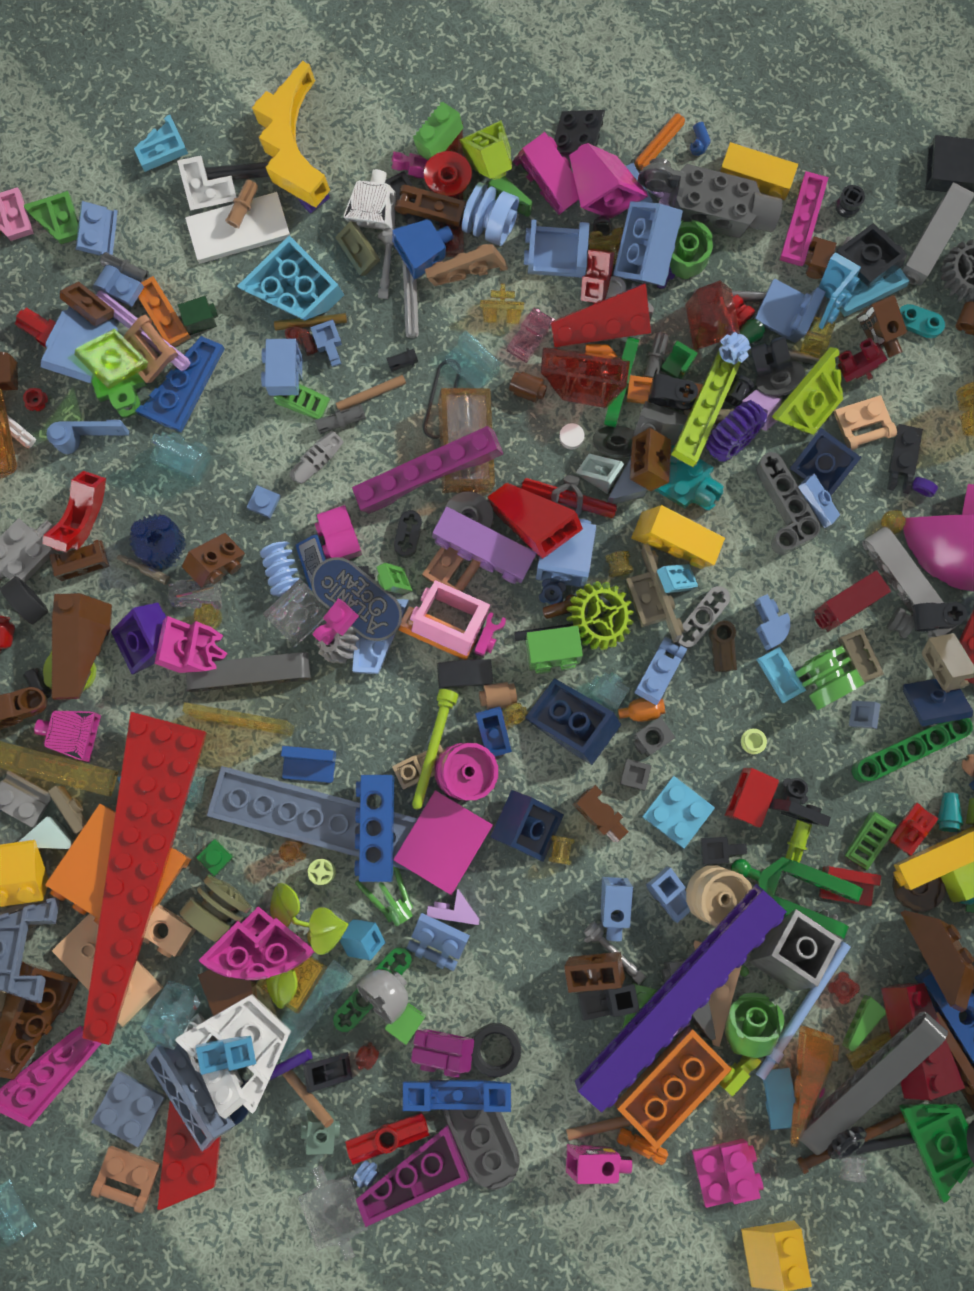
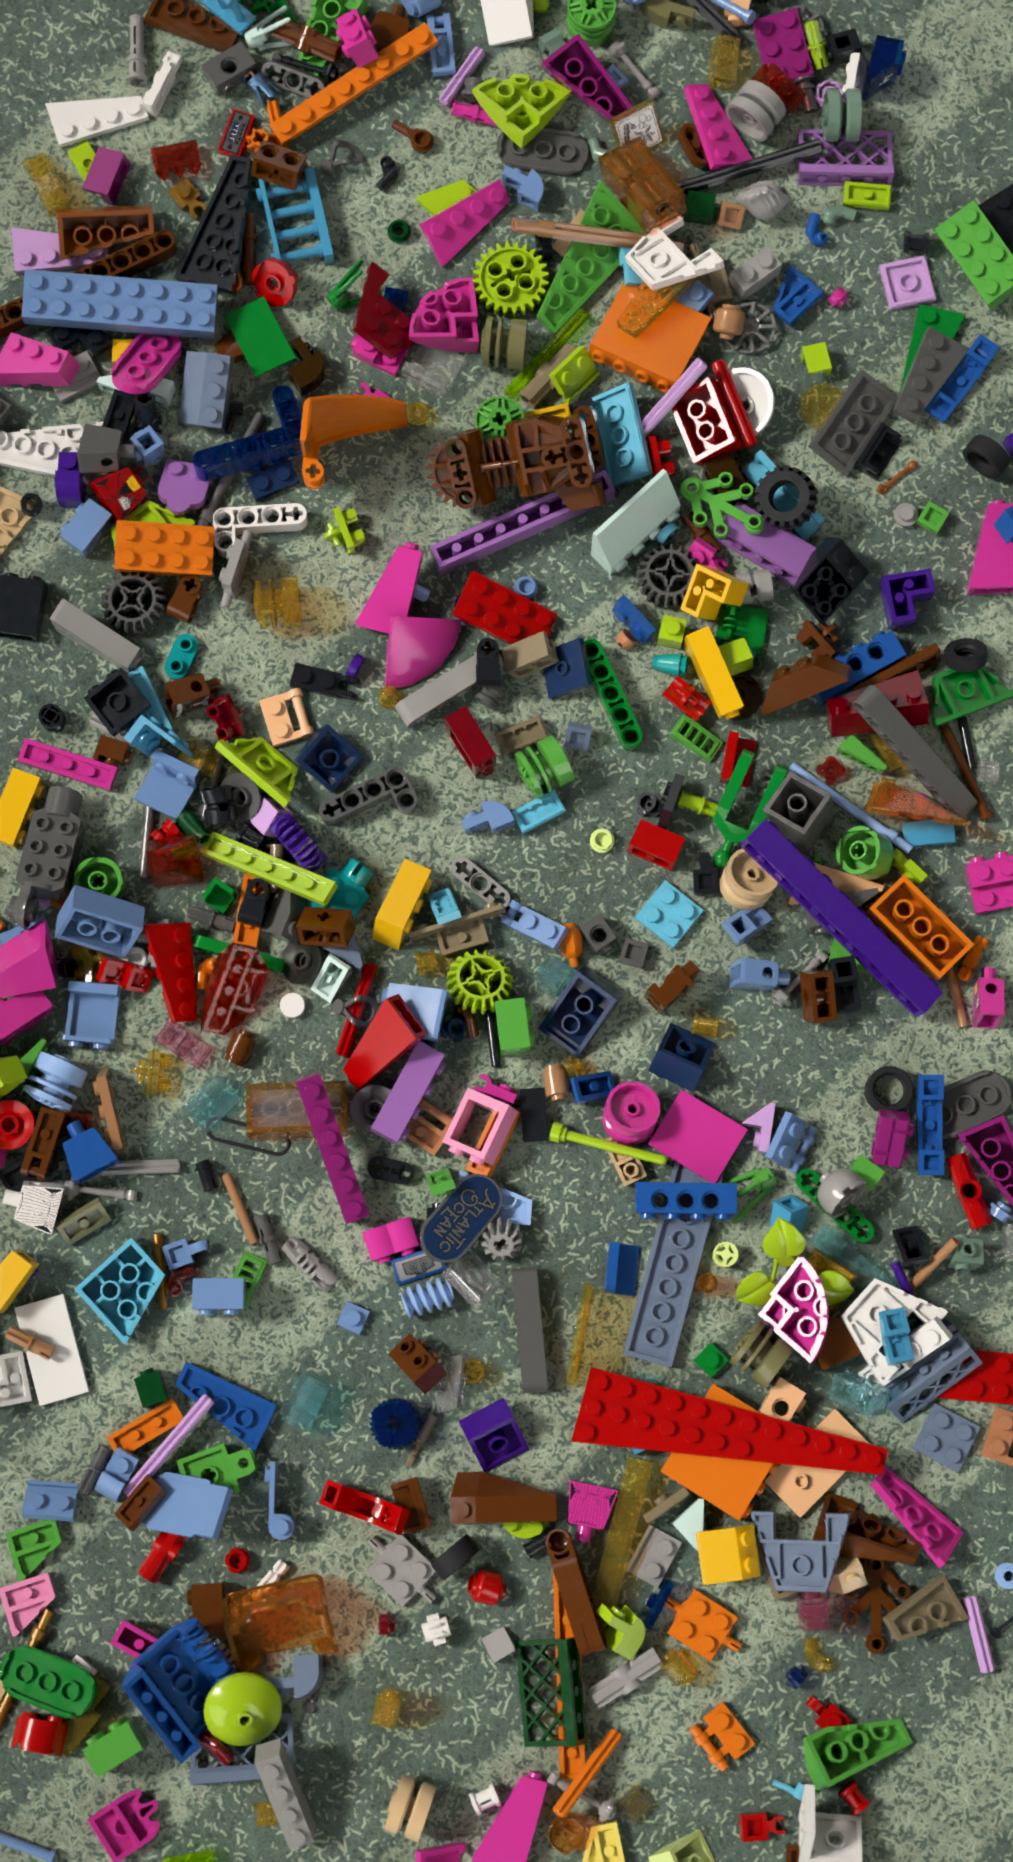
camera: 90 degrees left, 0 degrees up
(111, 358) = (206, 1470): clear neon green plate -> none
(155, 363) = (196, 1444): nougat plate -> none
(188, 646) = (506, 1385): dark pink plate -> none
(338, 621) = (484, 1234): dark pink plate -> none
(366, 1056) = (896, 1210): clear red plate -> none
(723, 650) = (513, 865): dark brown piece -> none
(734, 348) = (212, 840): light blue gear -> none
(819, 500) = (367, 766): medium blue plate -> none
(847, 1143) = (966, 776): black gear -> none

